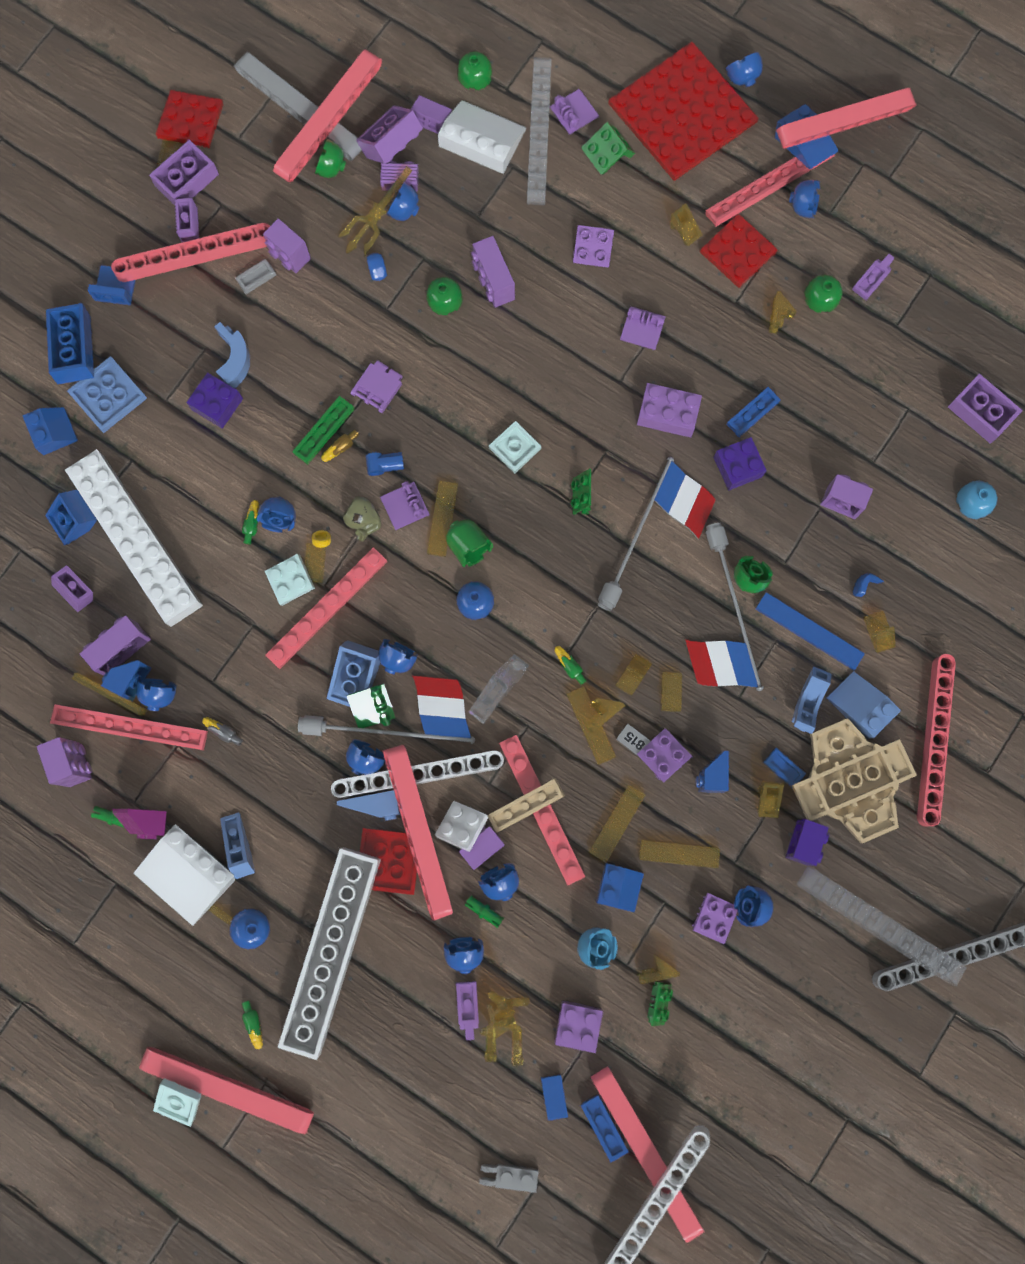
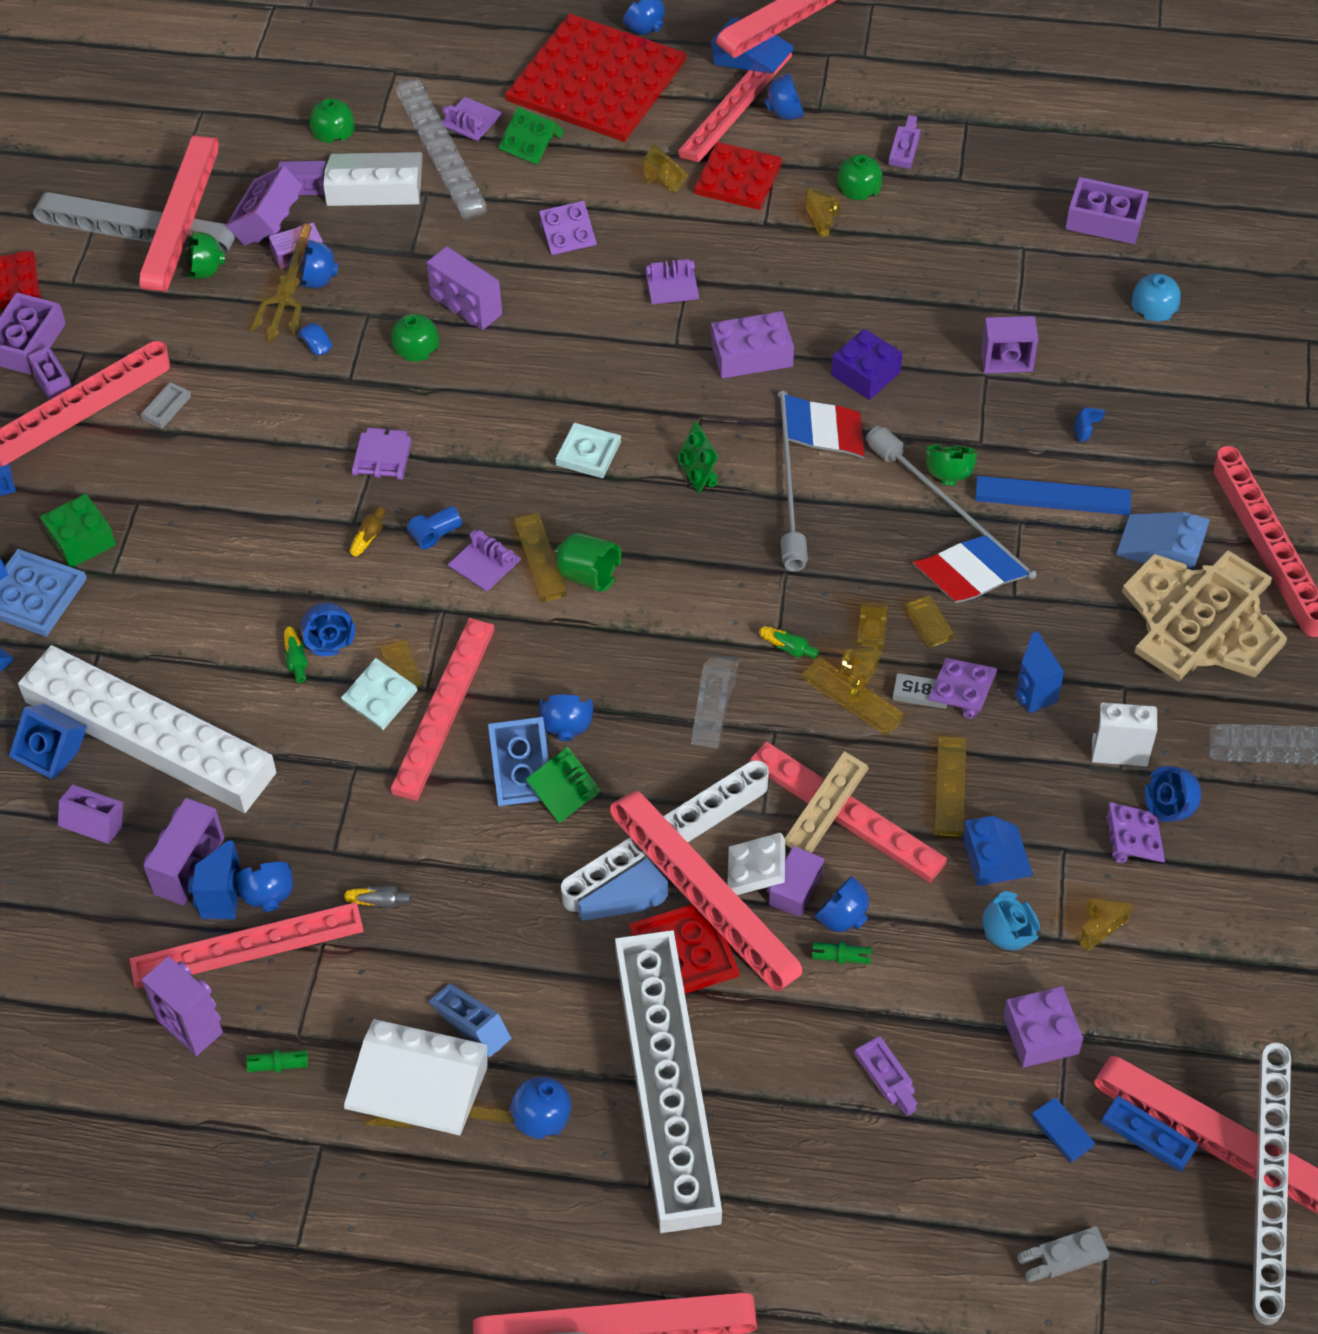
camera: 25 degrees left, 25 degrees down
(108, 694) = (200, 916): clear yellow tile -> none
(144, 823) = (323, 1032): magenta slope -> none
(153, 359) = (78, 530): none -> green brick
(214, 400) = (180, 543): dark purple brick -> none
(238, 364) = (189, 504): medium blue arch -> none
(251, 1022) = (606, 1228): green piece -> none
(286, 246) = (194, 353): medium lavender brick -> none
(321, 538) = (396, 634): yellow tile -> none
(323, 430) = (337, 523): green plate -> none
(362, 517) = (437, 589): olive piece -> none
(363, 758) = (585, 842): blue cylinder -> none
(439, 710) = (649, 754): flag -> none
(464, 954) = (846, 1008): blue cylinder -> none
(475, 600) = (630, 622): blue cylinder -> none
(502, 1020) = (944, 1060): clear yellow piece -> none
(660, 1014) = (1126, 954): green hinge -> none
(679, 854) = (1047, 786): clear yellow tile -> none
(745, 850) = (1124, 734): none -> white panel
(753, 412) = (850, 312): blue plate -> none
(770, 799) = (1119, 674): clear yellow slope -> none
(784, 767) = (1113, 643): blue tile -> none
(807, 842) = (1192, 698): dark purple brick -> none
(810, 700) = (1098, 555): medium blue arch -> none
(881, 634) = (1135, 463): clear yellow slope -> none

